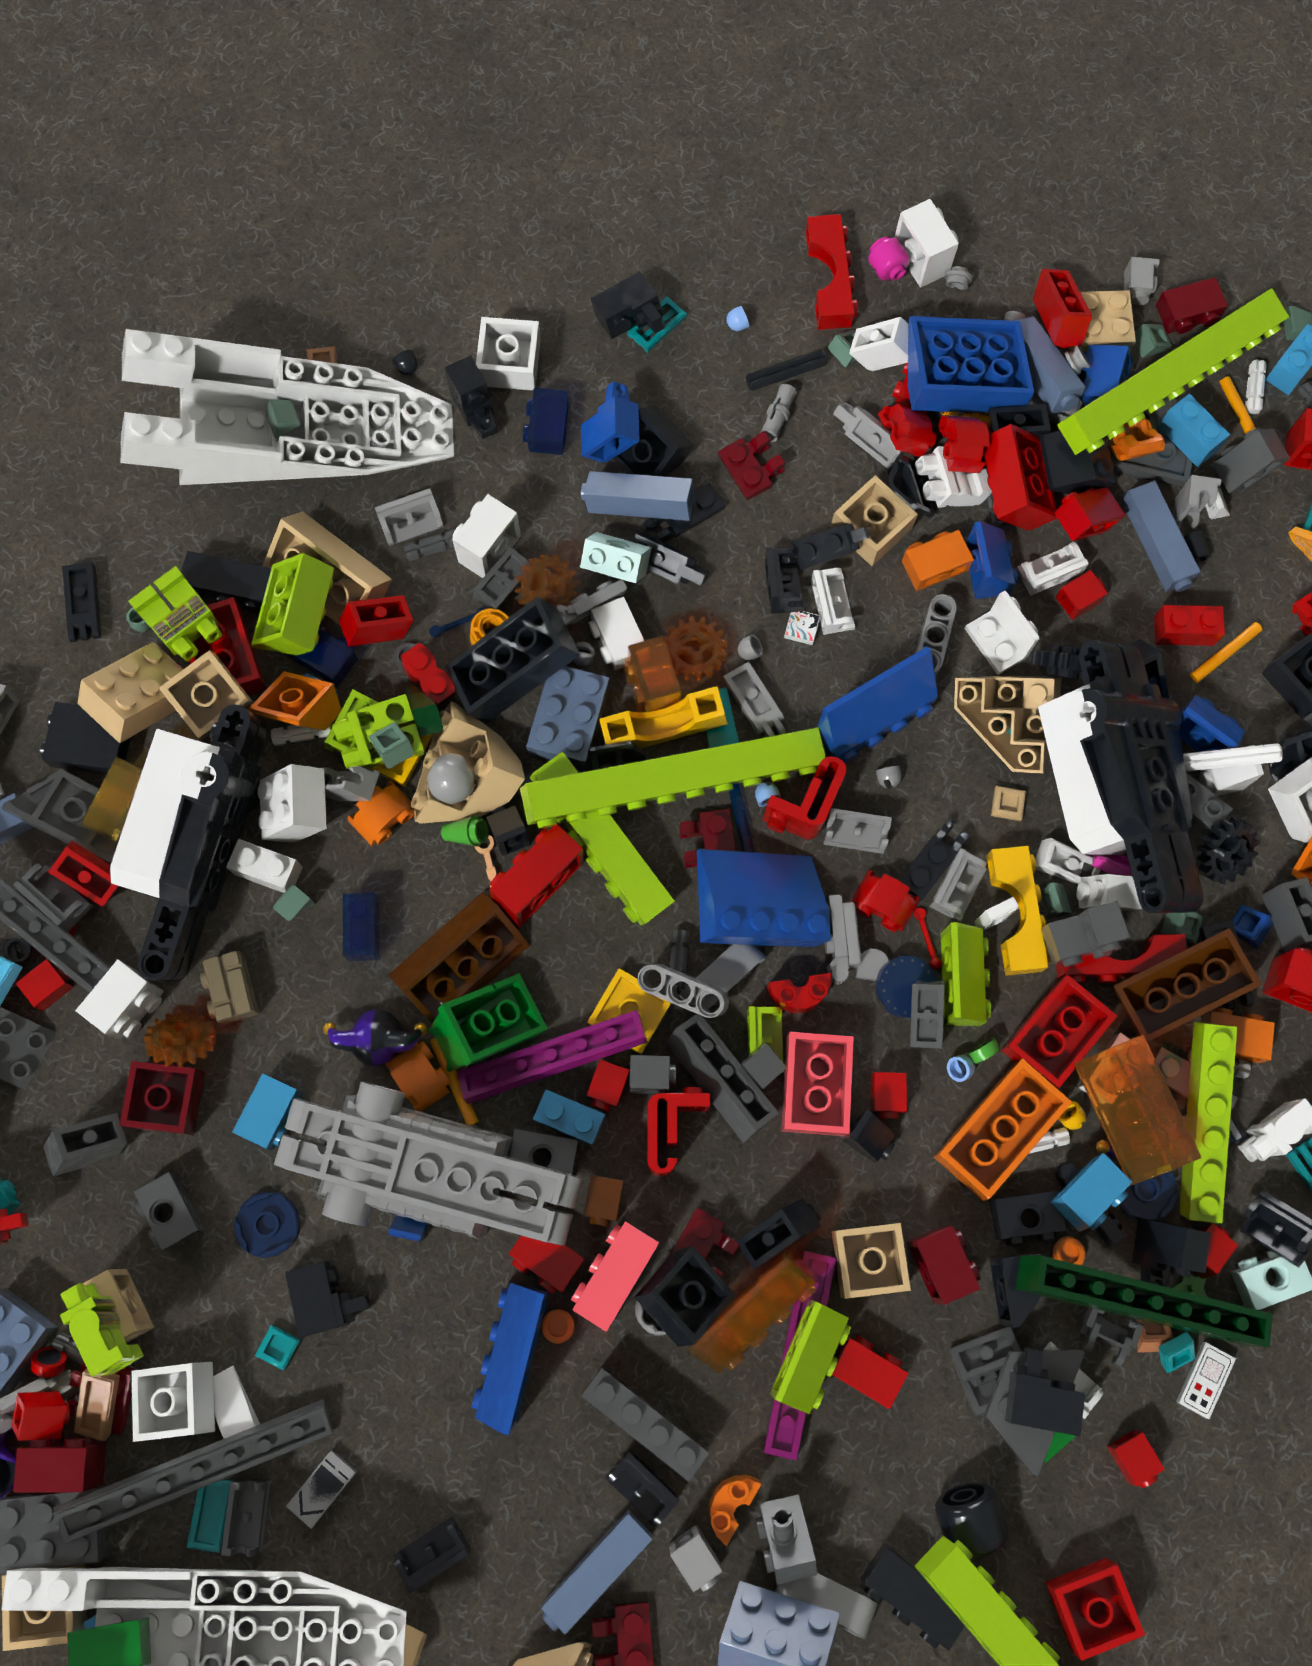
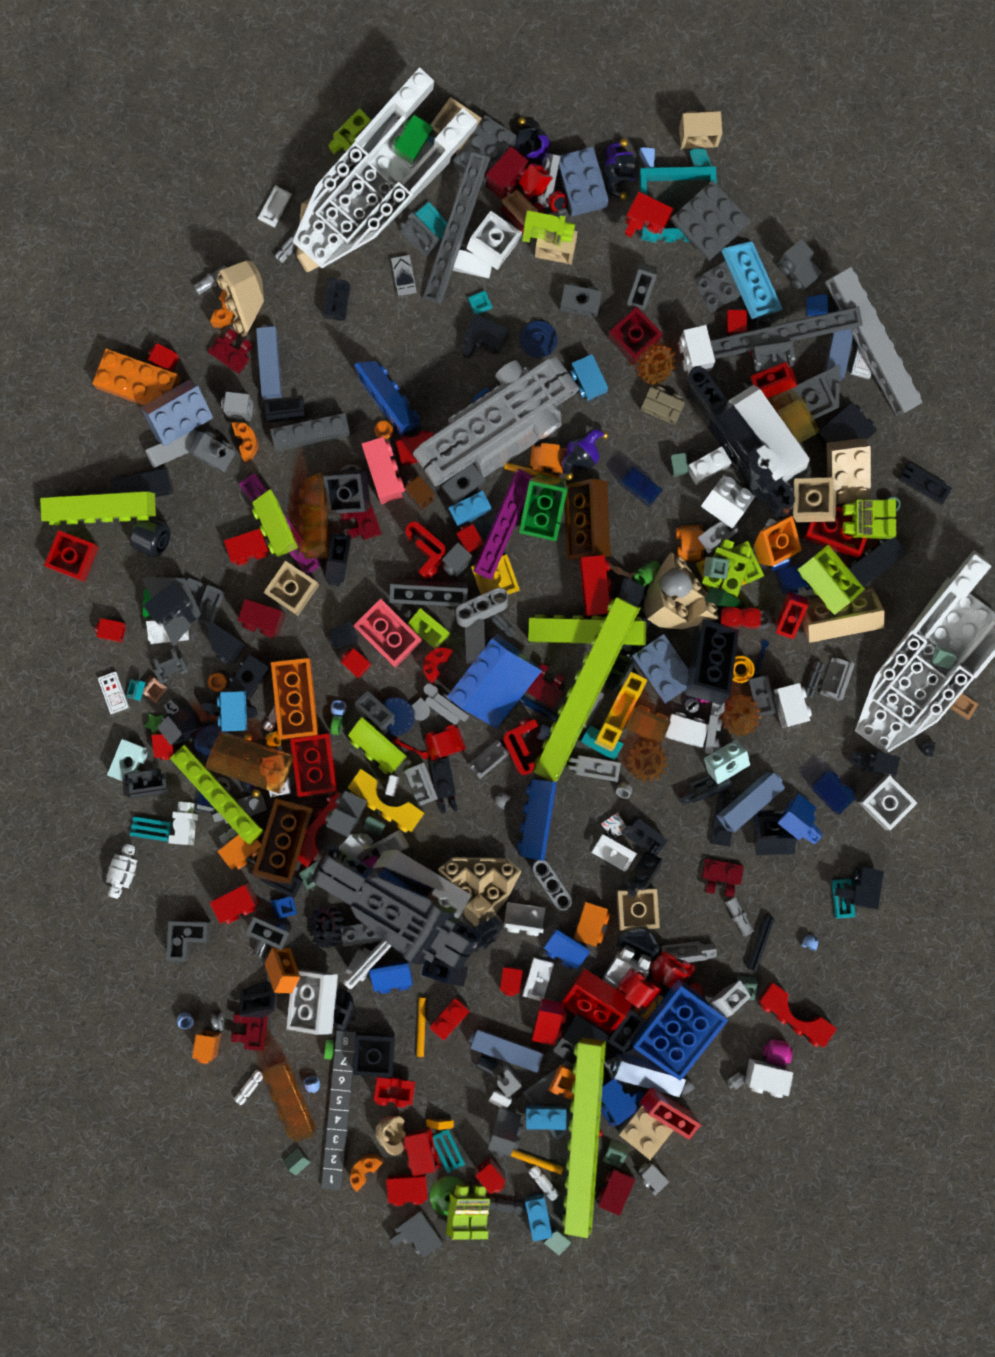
camera: 130 degrees right, 10 degrees up
(763, 1065) = (416, 614): dark grey tile -> none
(1008, 803) = (440, 846): tan tile -> none
(1077, 360) = (634, 1092): light grey bush -> none
(1143, 1301) = (169, 688): dark green brick -> none

